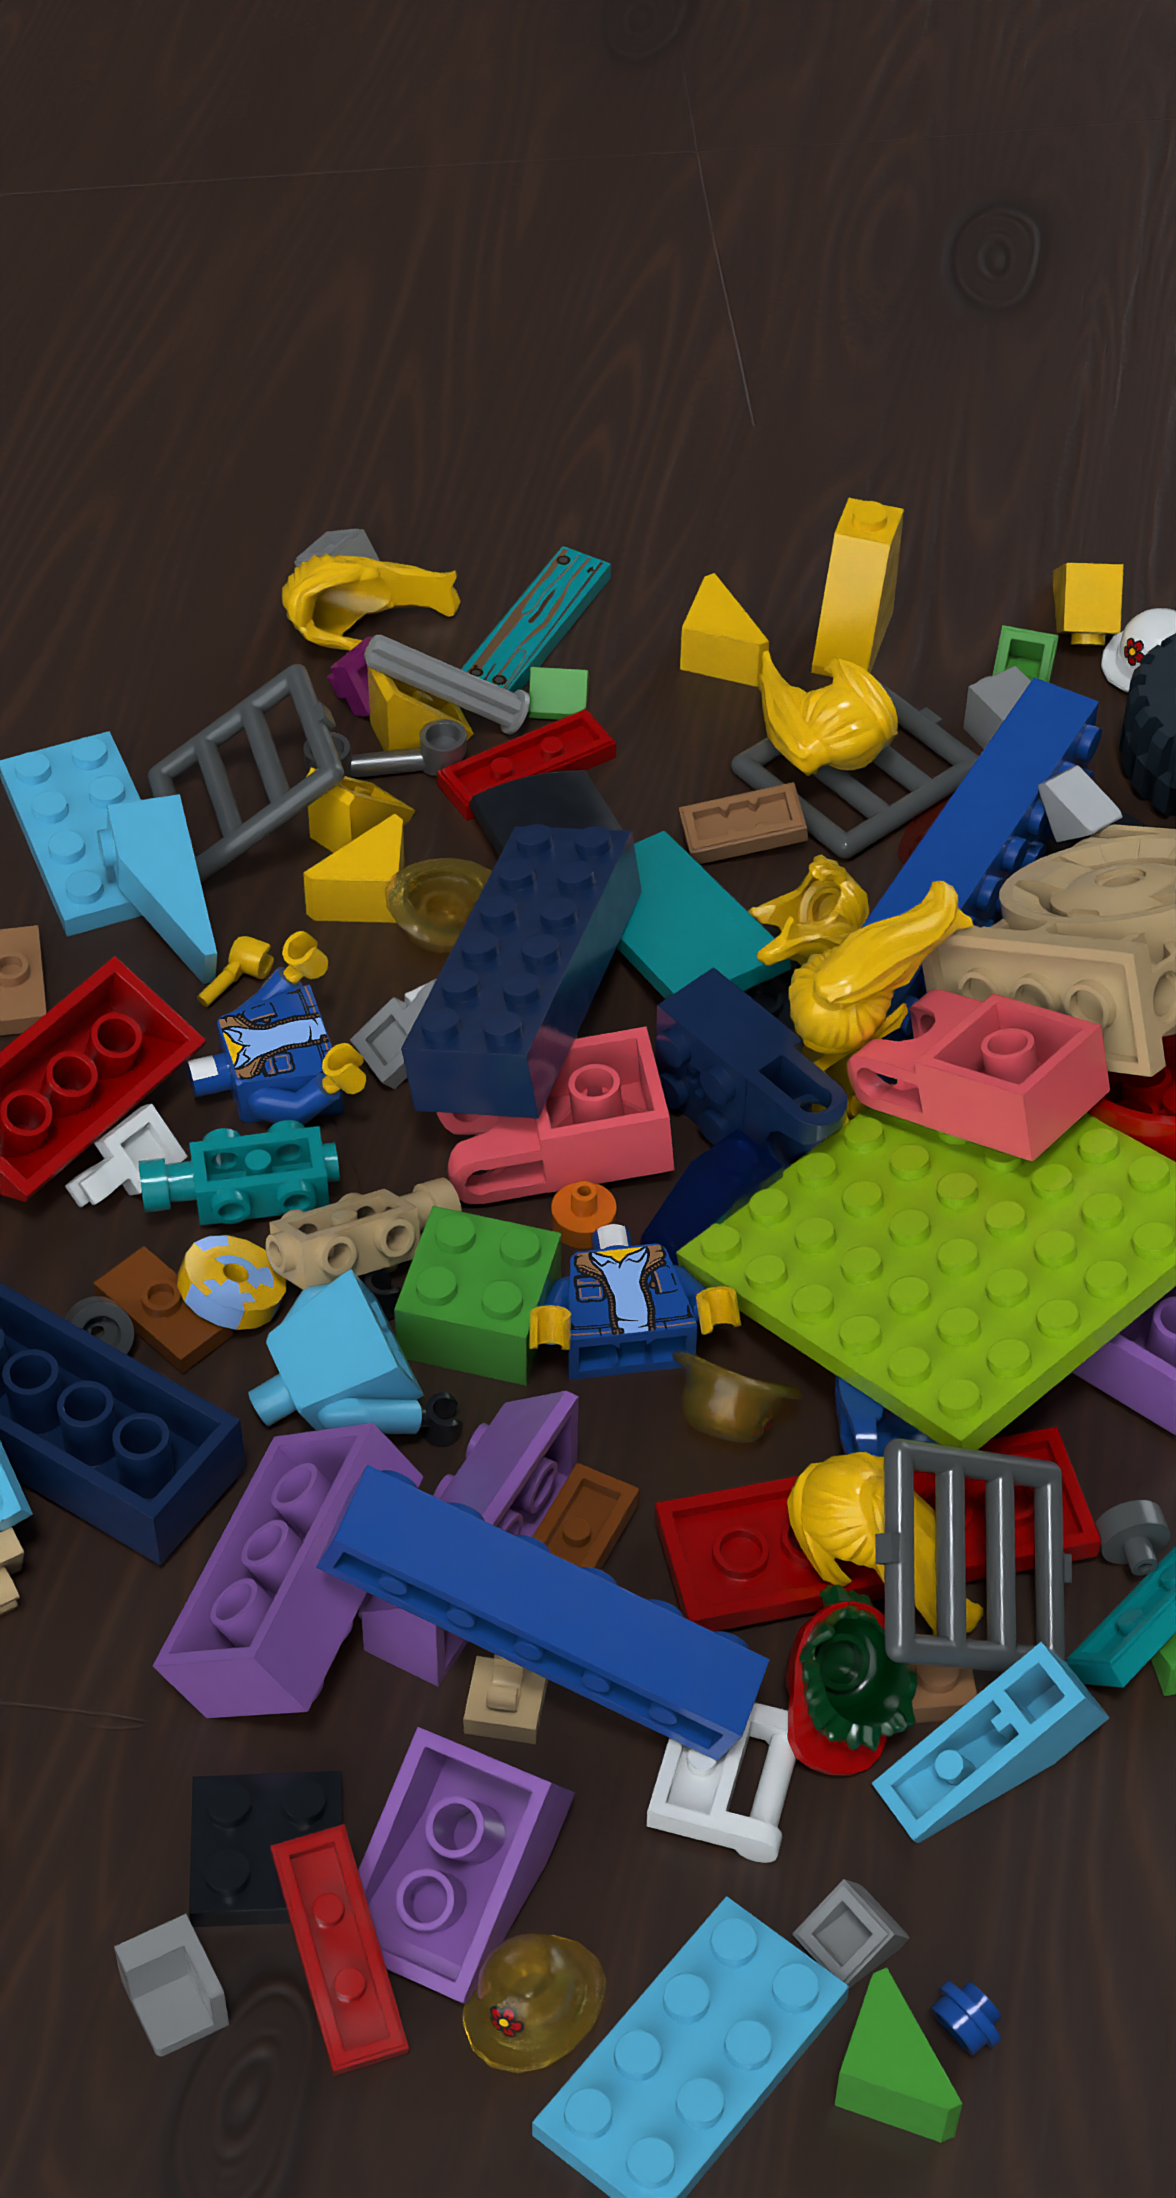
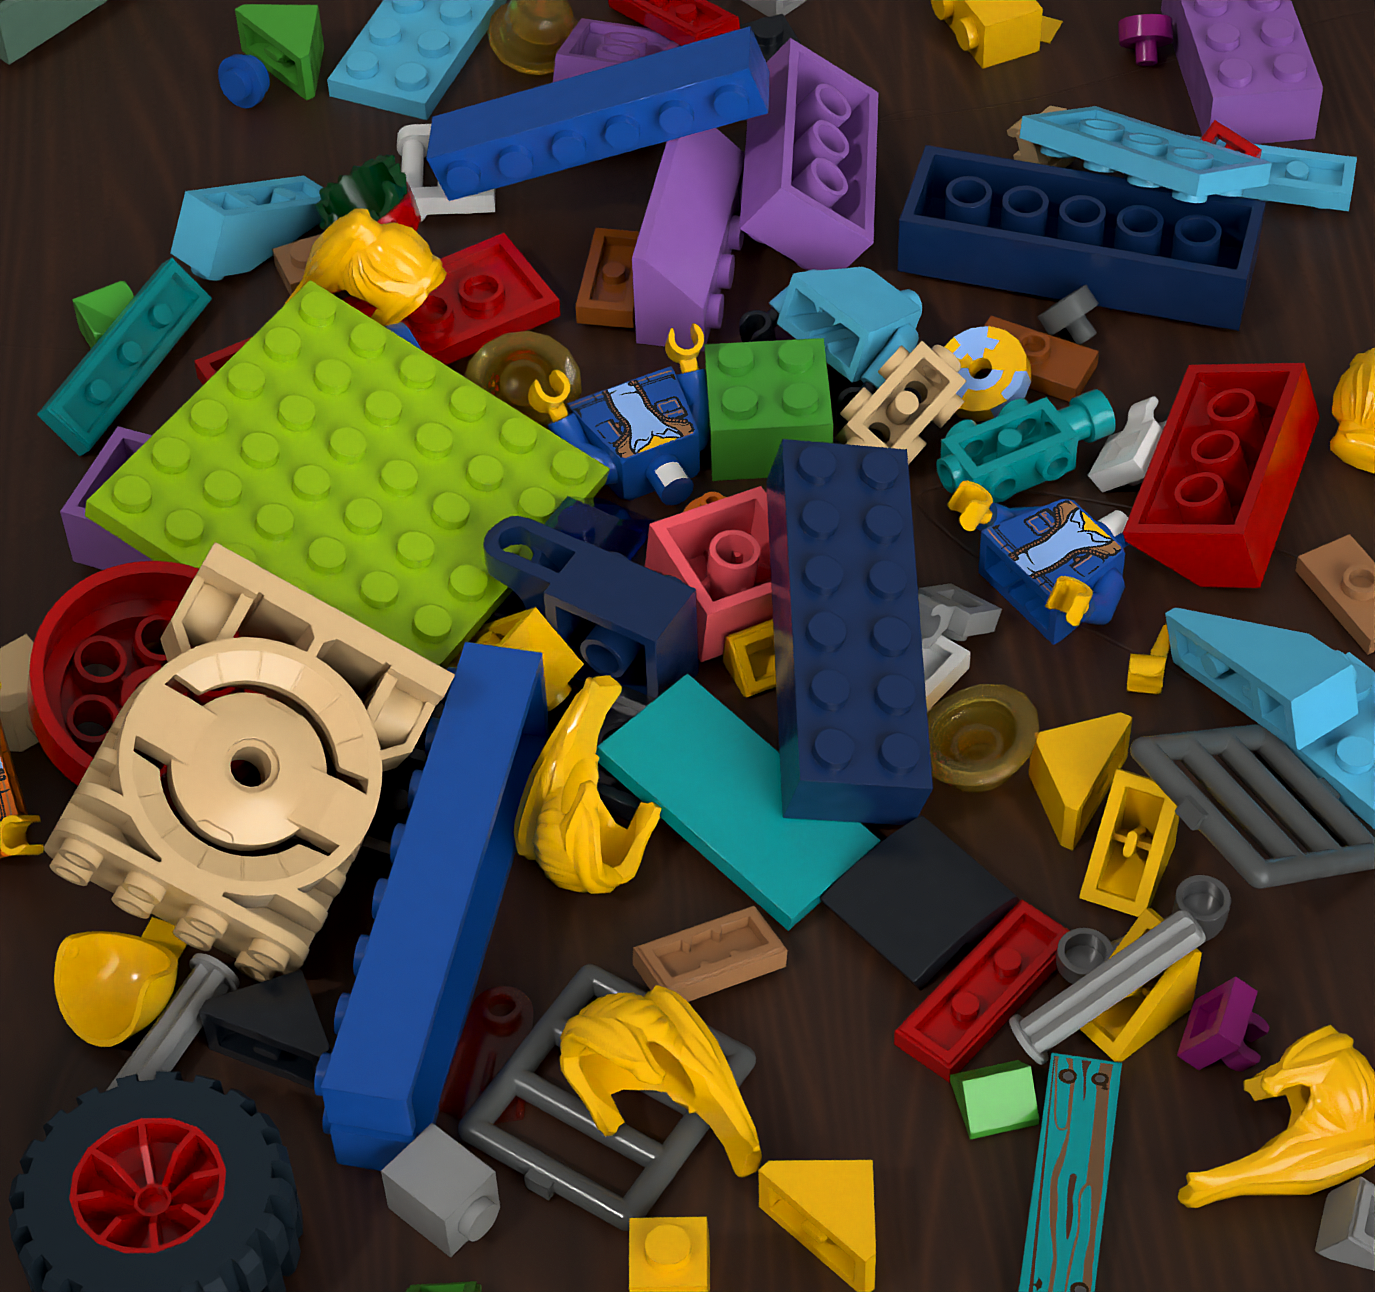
camera: 165 degrees right, 0 degrees up
(504, 1701) = (625, 180): tan tile -> none
(846, 991) = (488, 591): yellow hair -> none
(850, 1933) = (331, 119): light grey slope -> none
(896, 1553) = (313, 246): dark grey bar -> none
(987, 1071) = (368, 561): coral brick -> none
(1076, 805) = (320, 953): light grey slope -> none
(1133, 1535) = (169, 378): dark grey tile -> none

